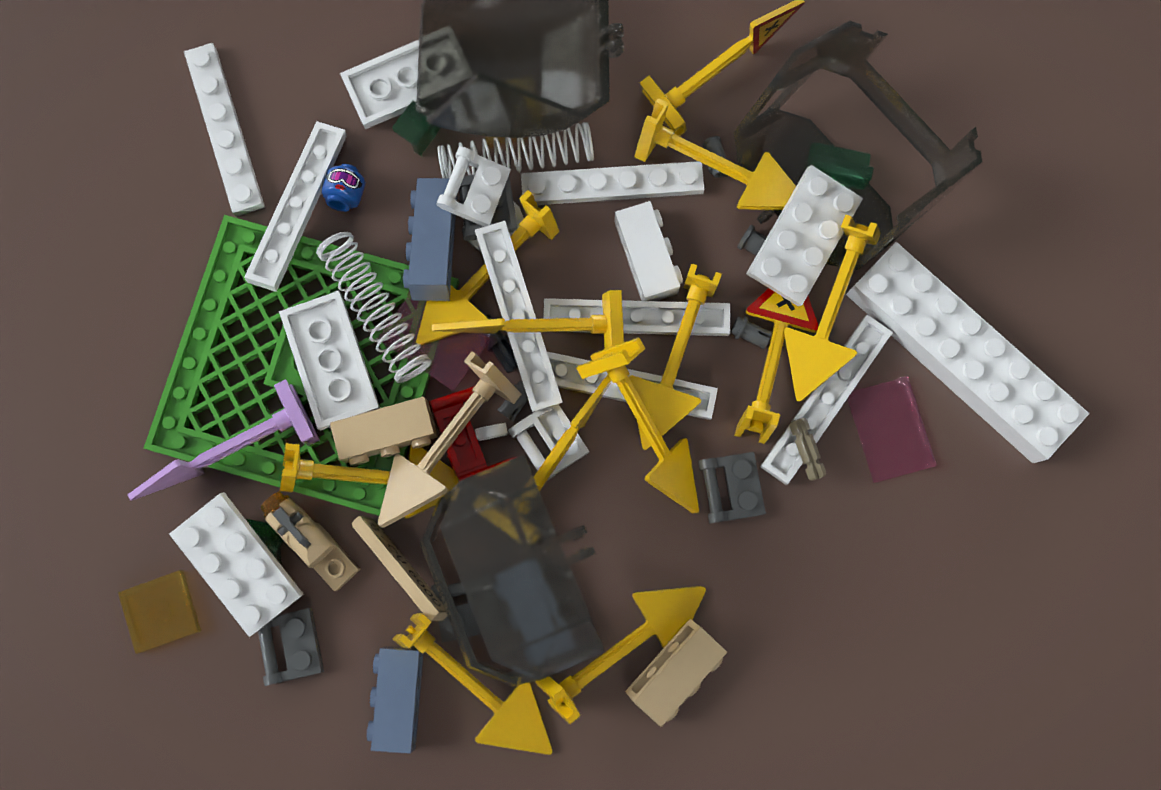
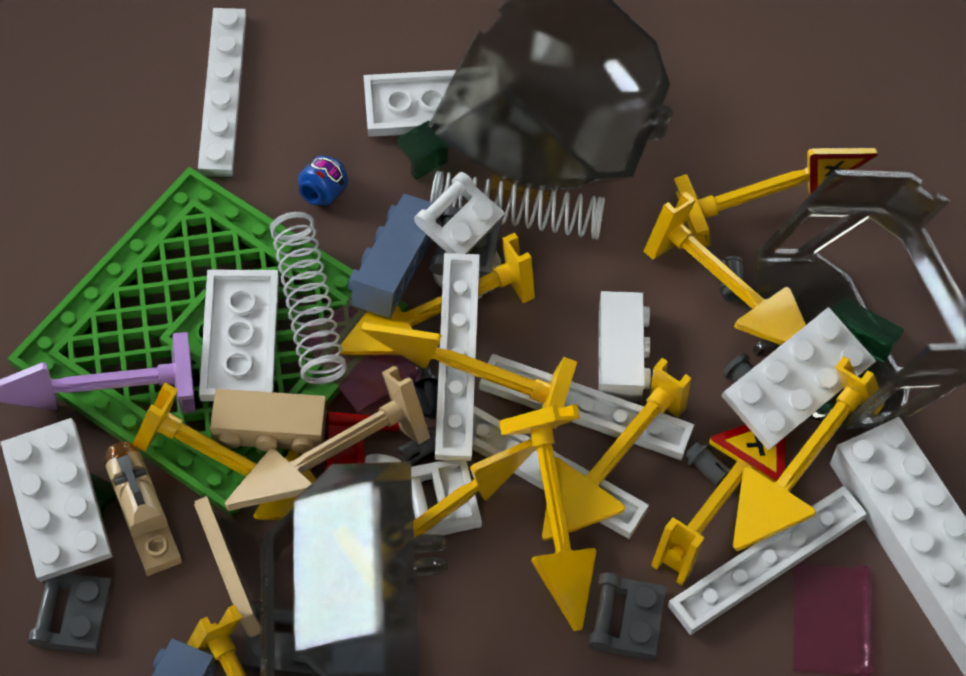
camera: 15 degrees right, 20 degrees down
(295, 207) = (265, 181): white plate -> none
(614, 183) = (616, 271): white plate -> none
(807, 449) = (726, 598): dark tan axle -> none

